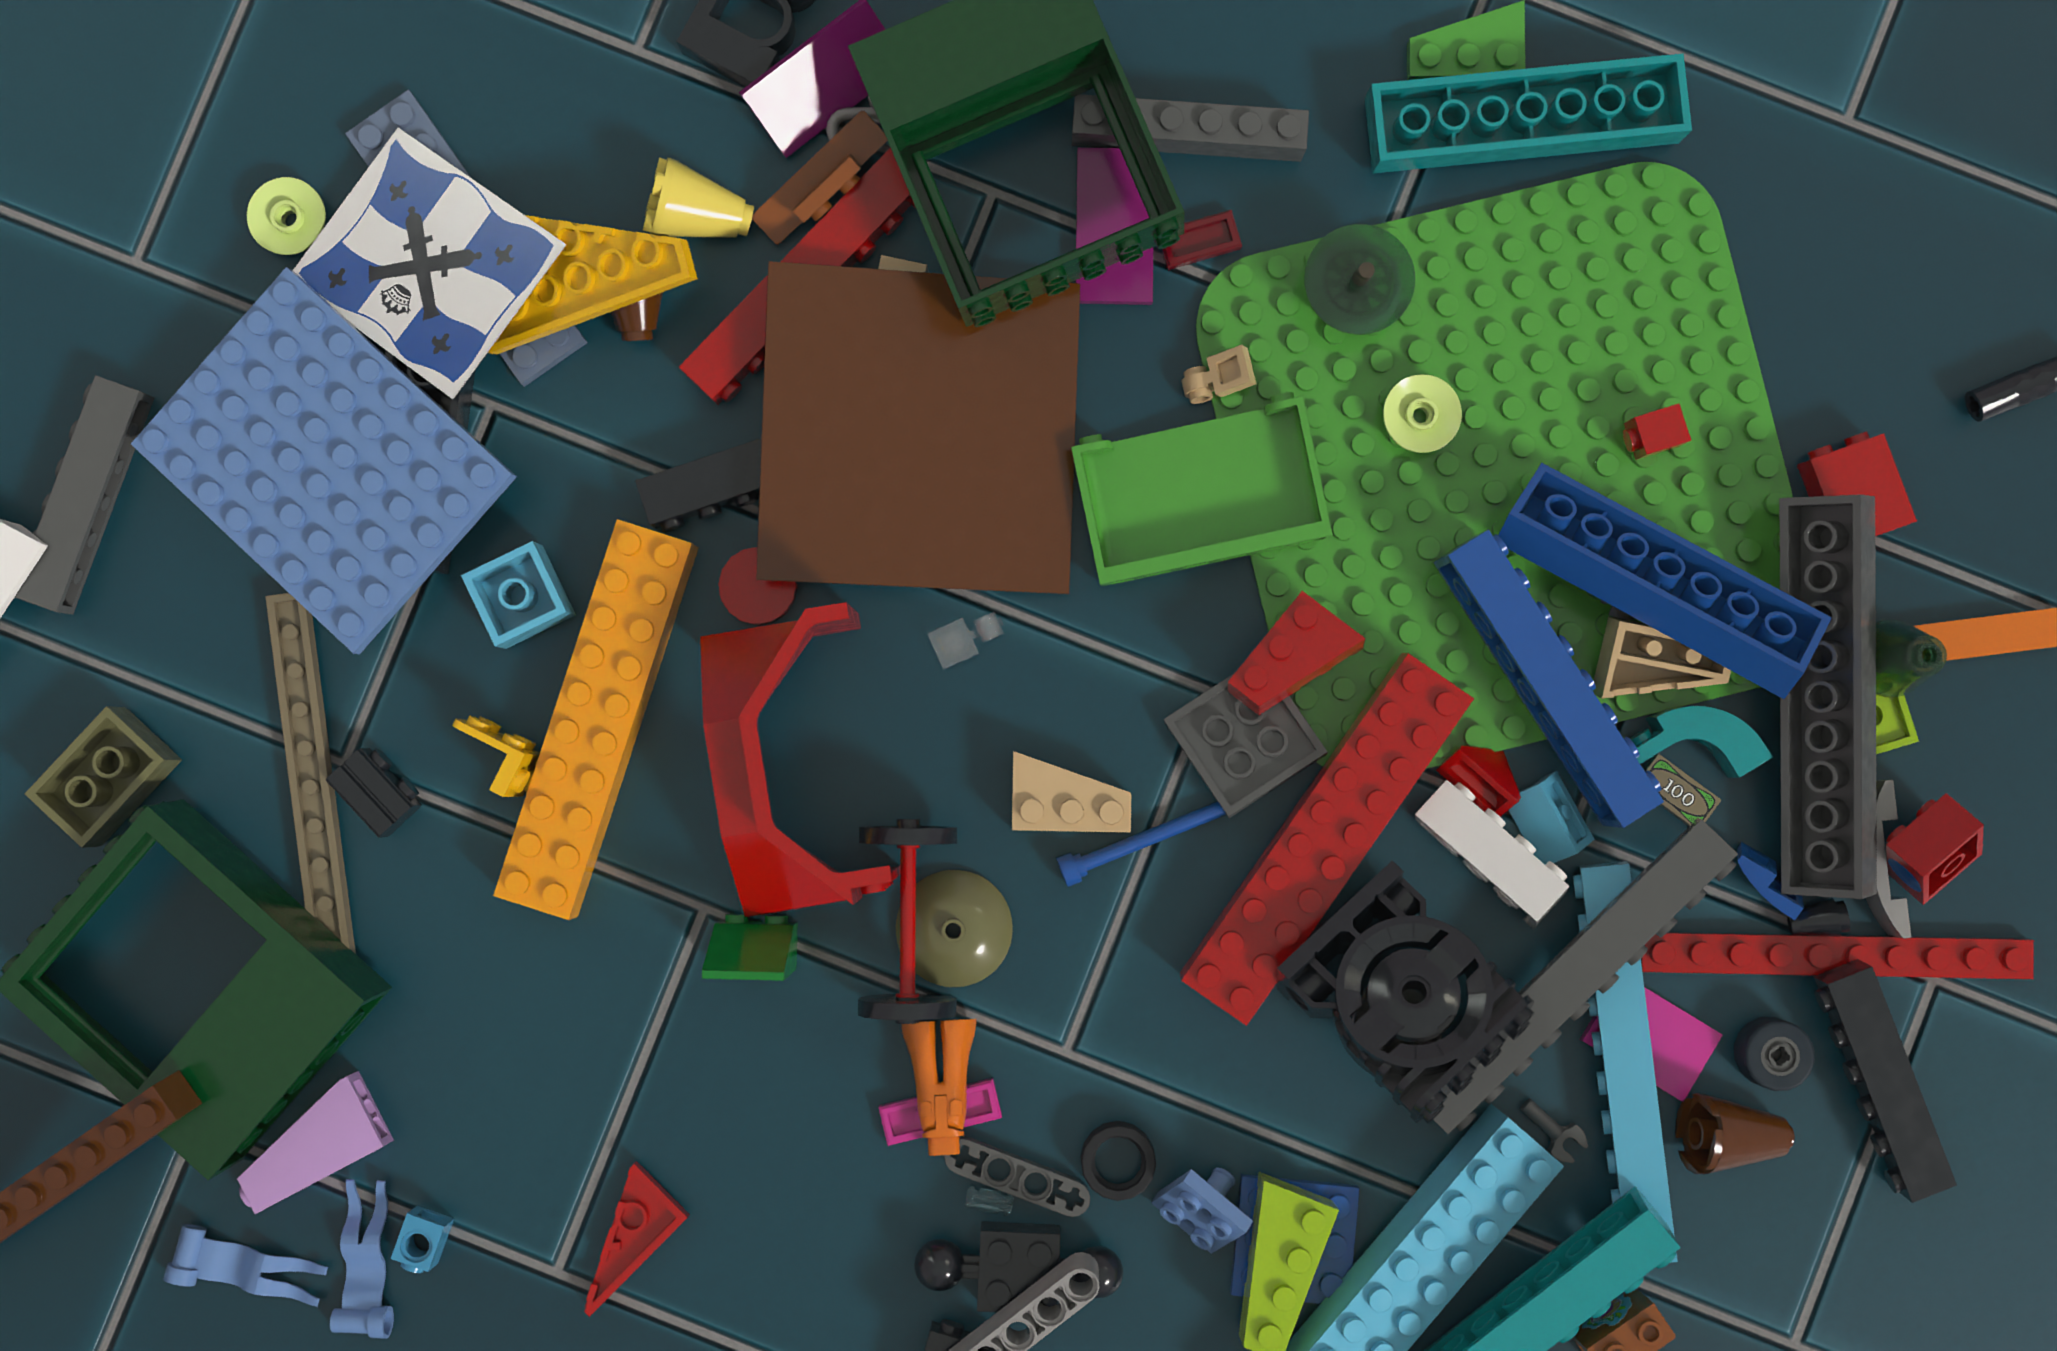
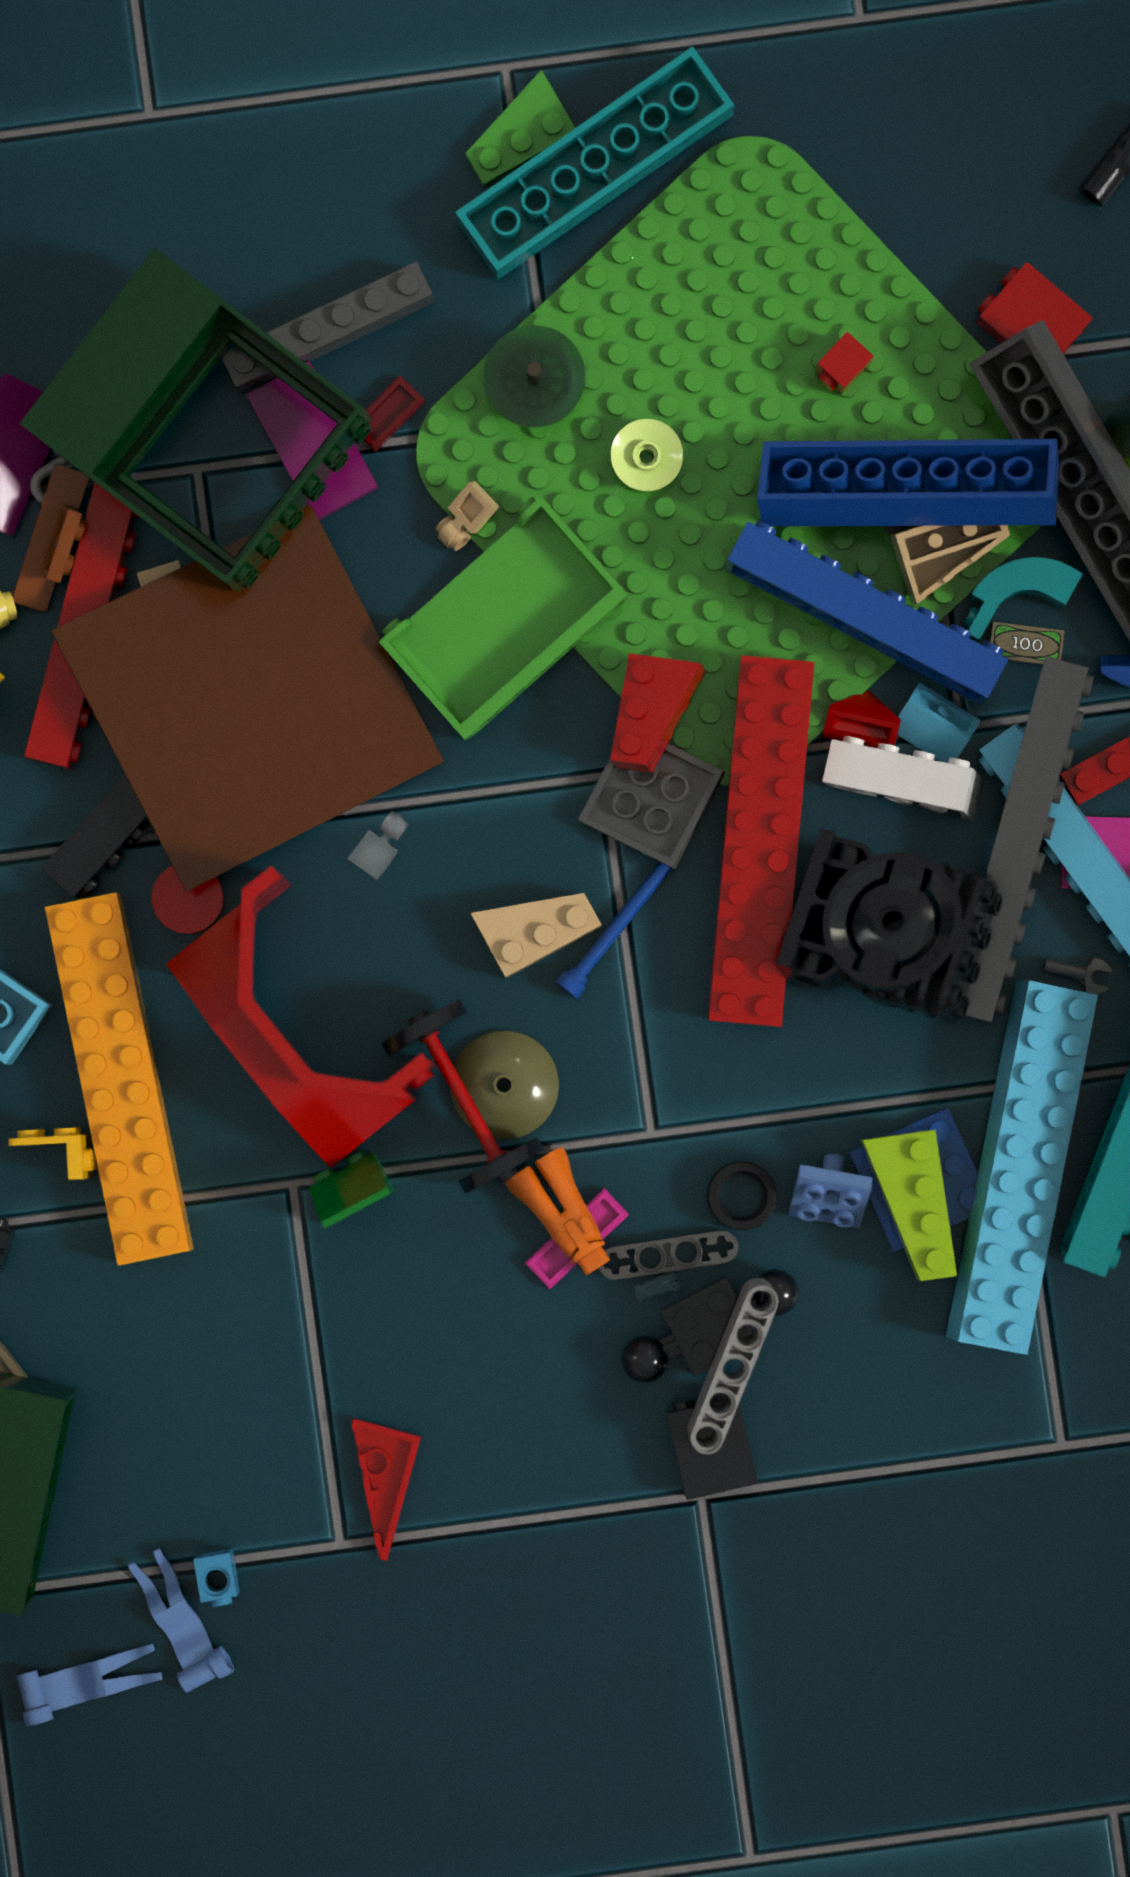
camera: 25 degrees left, 0 degrees up
(323, 1140) = (91, 1544): lavender slope -> none

